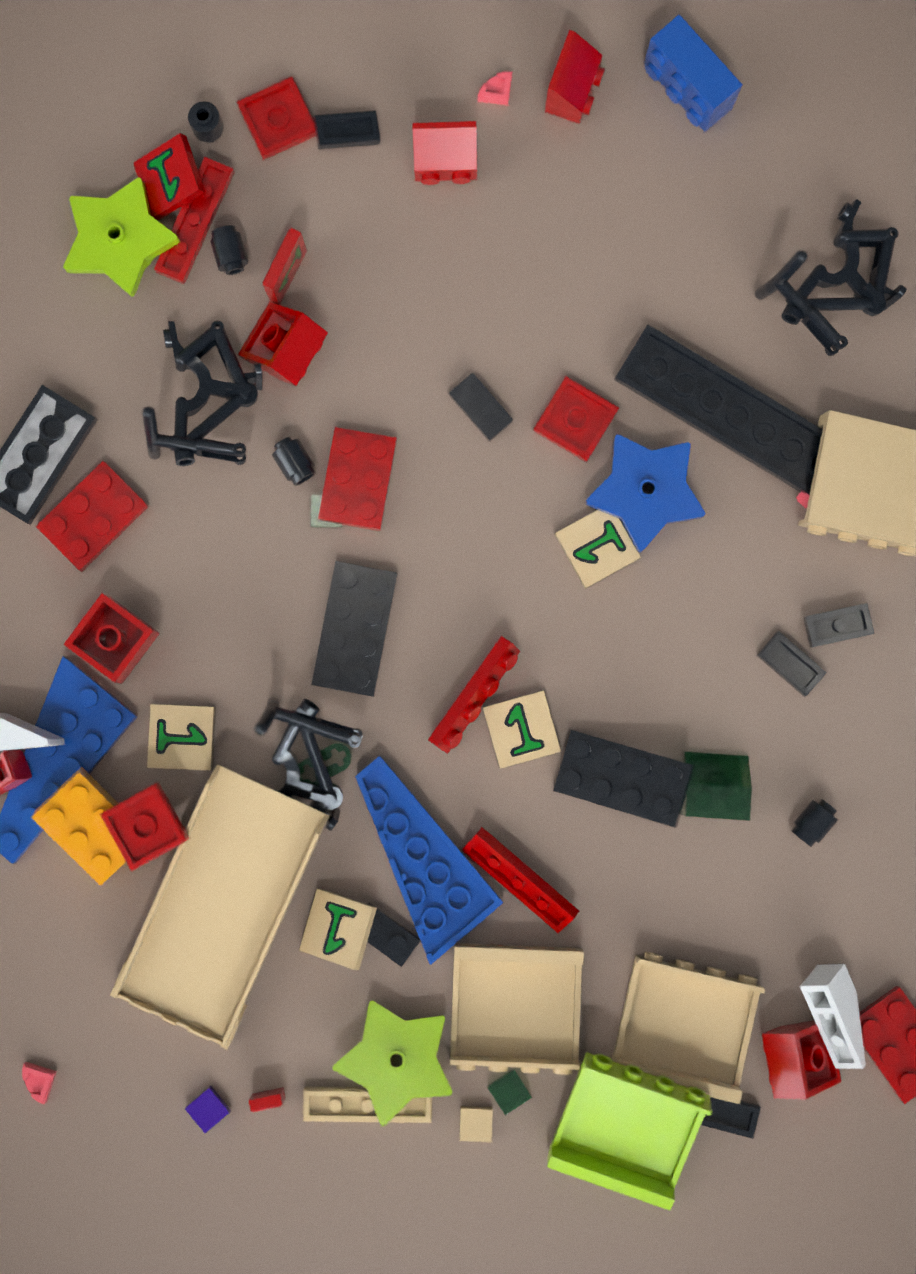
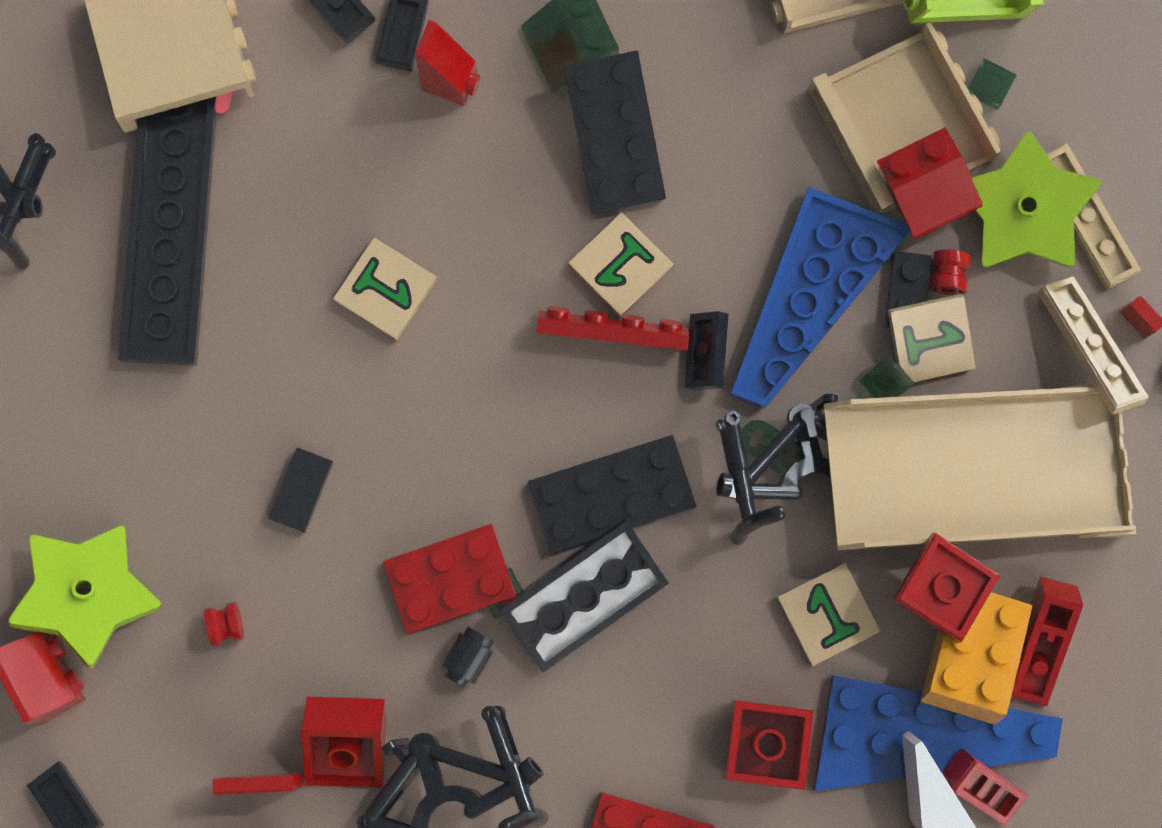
camera: 125 degrees left, 5 degrees down
(73, 885) = (1047, 639): none -> red slope
(265, 1046) = (1093, 345): none -> tan tile
(291, 566) = (583, 595): none -> piece
(325, 877) = (887, 379): none -> clear green tile
(379, 972) = (950, 274): none -> red wheel
(412, 301) = (223, 624): none -> red wheel
(421, 755) = (706, 351): none -> black plate
(453, 993) = (929, 183): none -> red slope
(465, 207) = (78, 619): none -> lime plate
(476, 1124) = (1041, 99): tan tile -> none
(520, 880) = (776, 183): red plate -> none
(576, 419) = (260, 383): red tile -> none
(642, 512) = (314, 289): blue plate -> none
(740, 677) = (445, 66): none -> red slope

